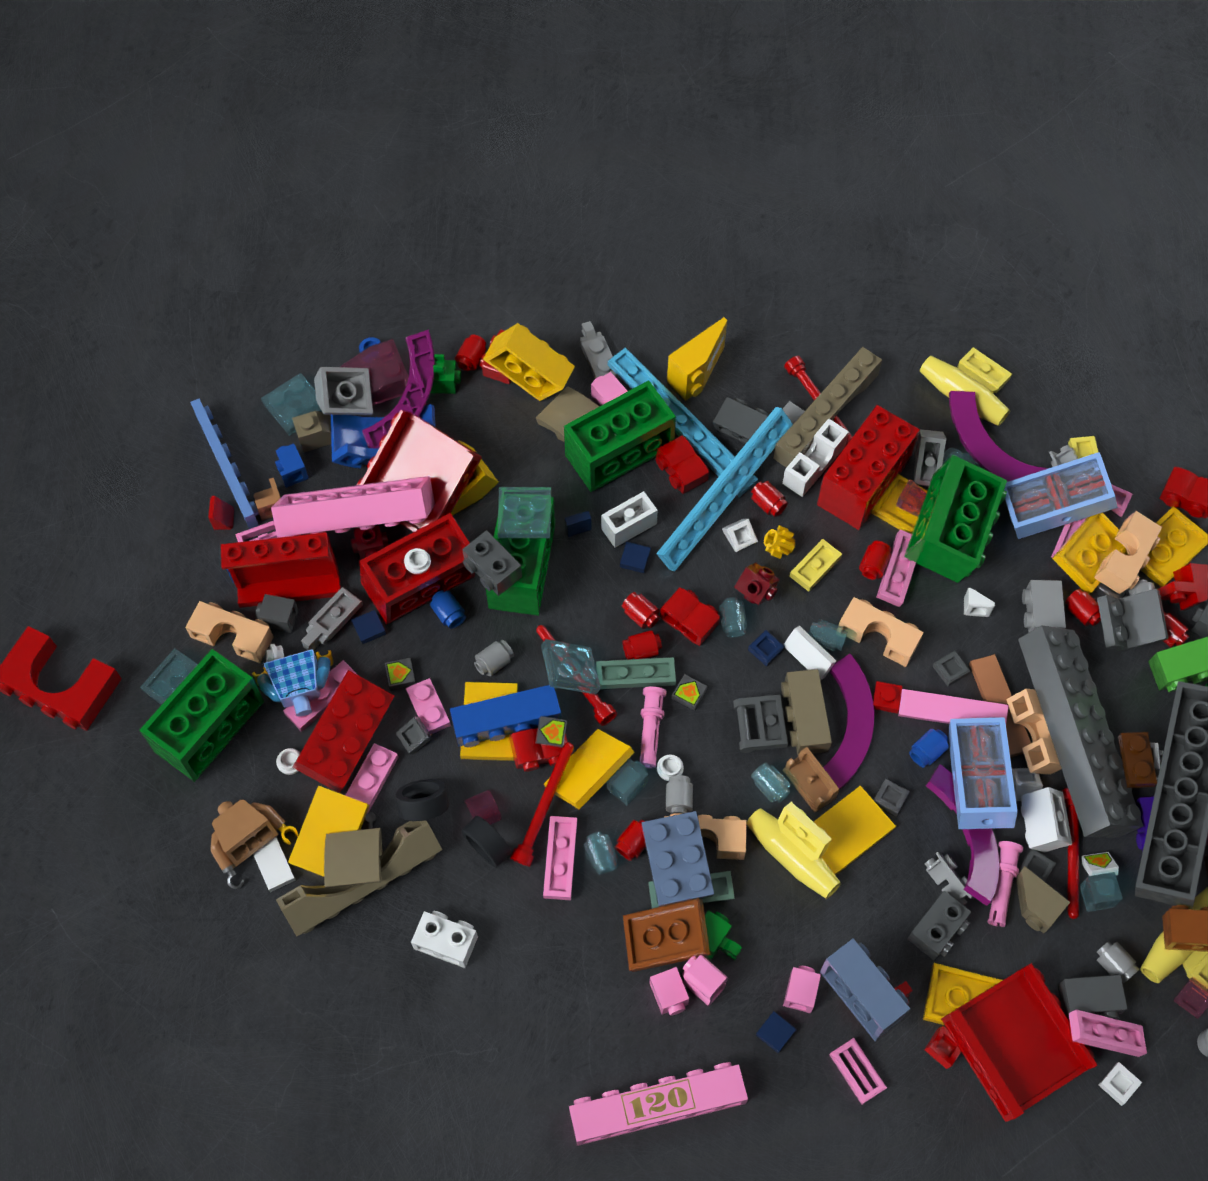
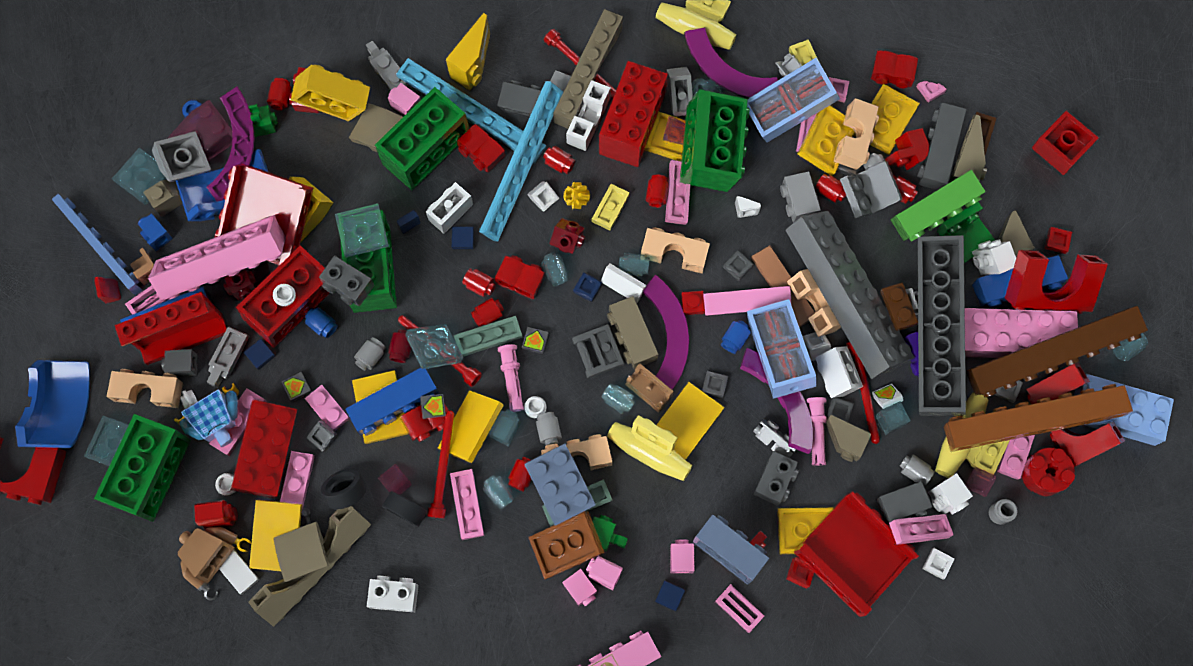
camera: 15 degrees left, 10 degrees up
(129, 622) = (57, 404): none -> blue panel
(268, 788) = (215, 514): none -> red brick
(530, 659) = (399, 347): none -> dark red brick
(1153, 1001) = (950, 495): none -> white brick

